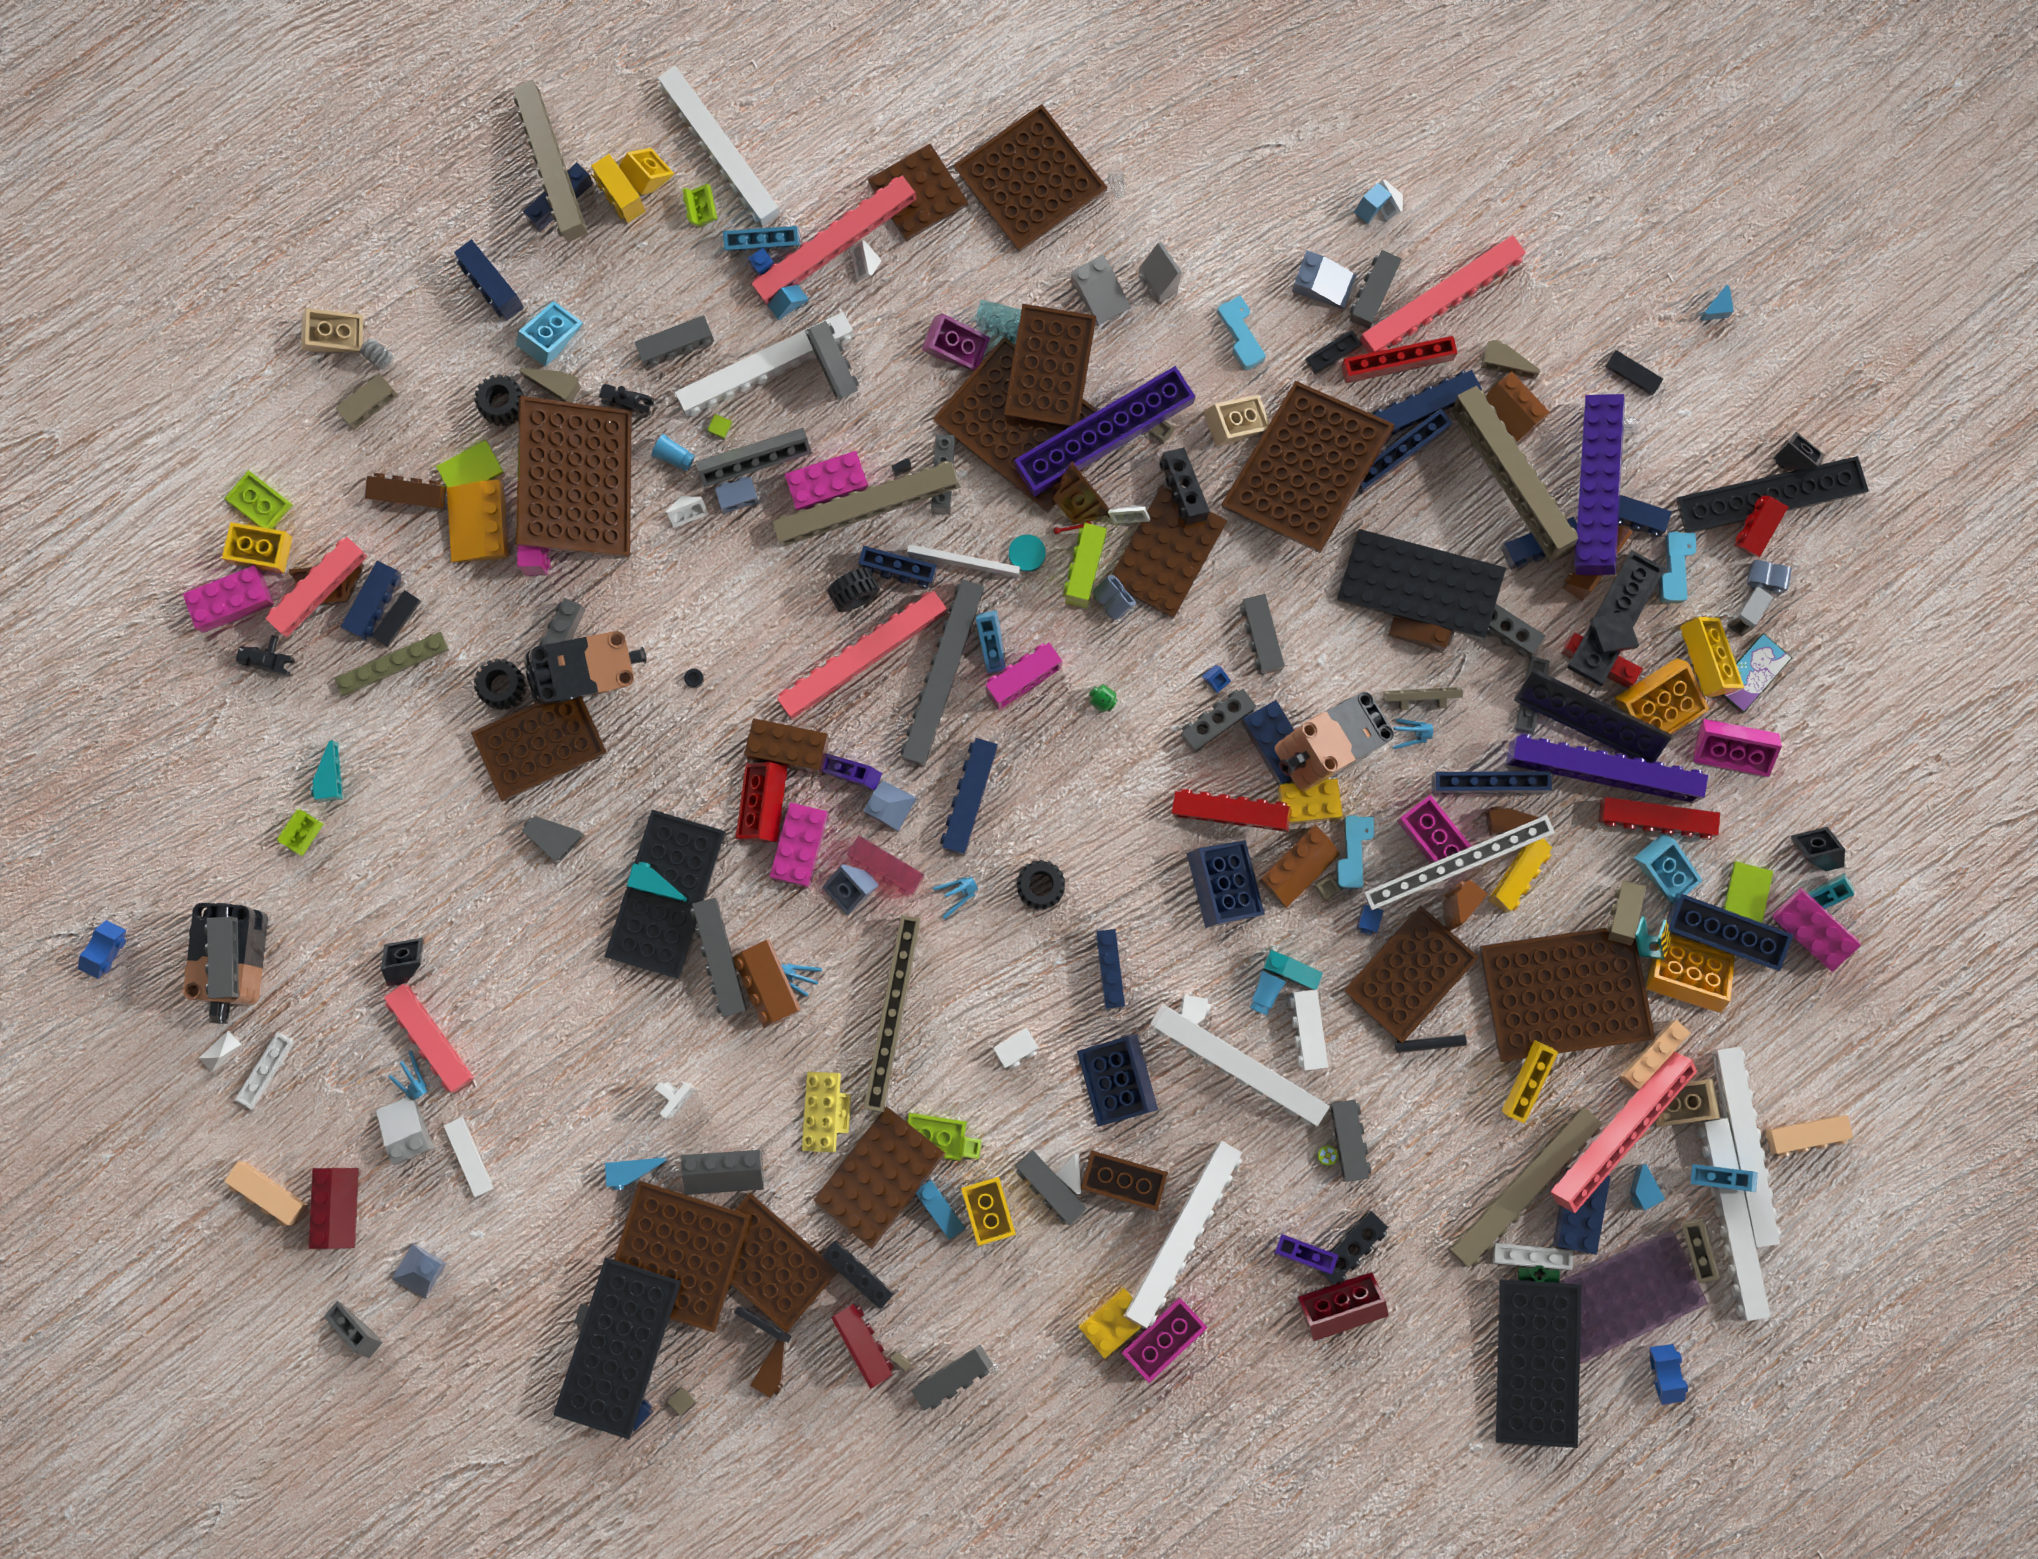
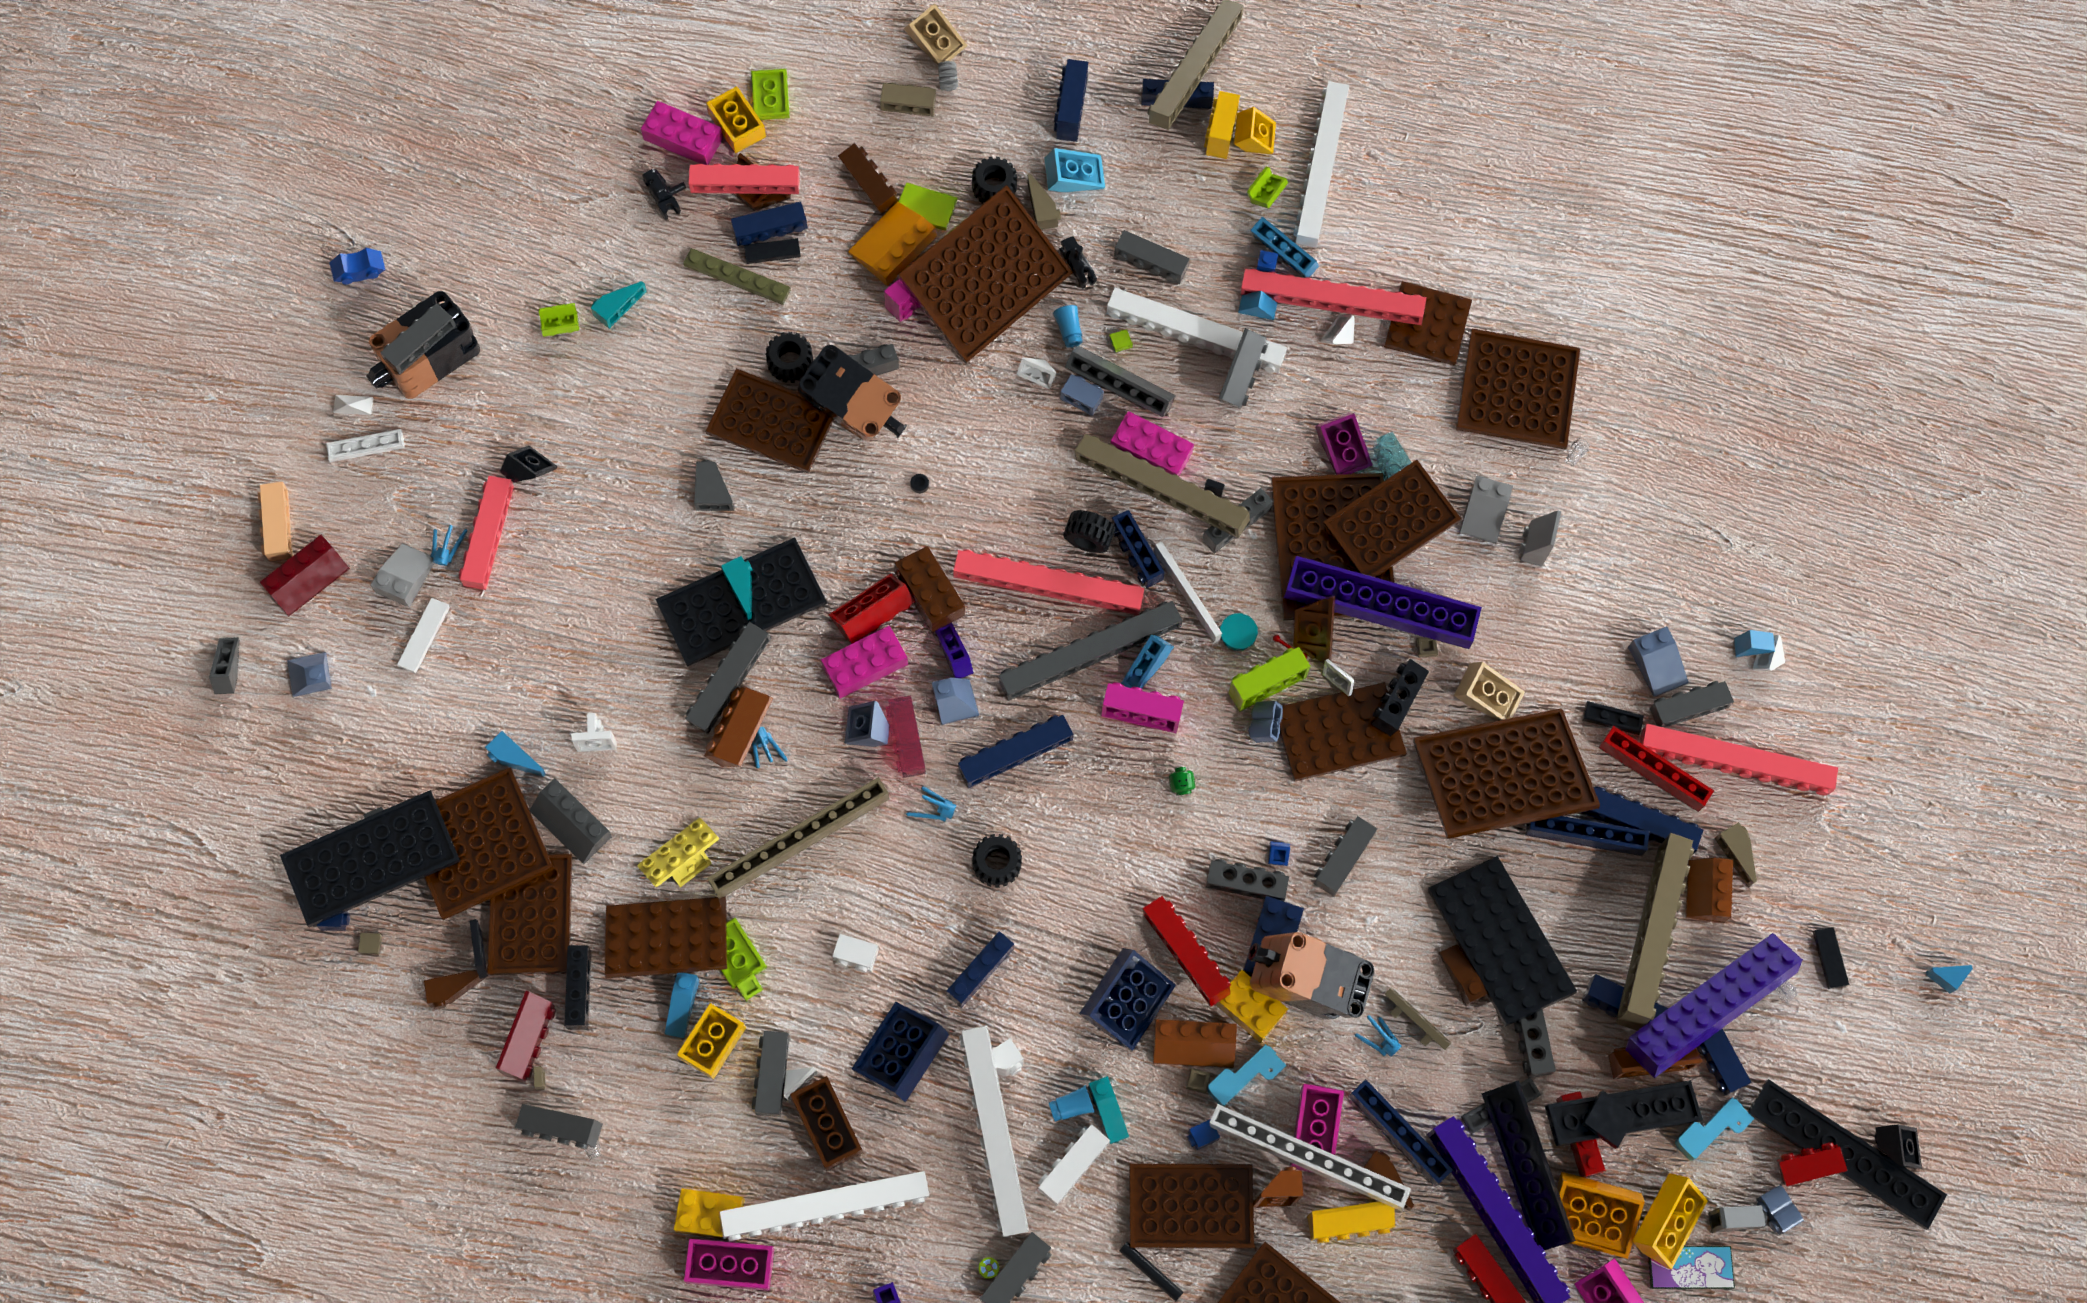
camera: 45 degrees right, 10 degrees down
(1247, 348) = (1550, 651): medium azure piece -> none

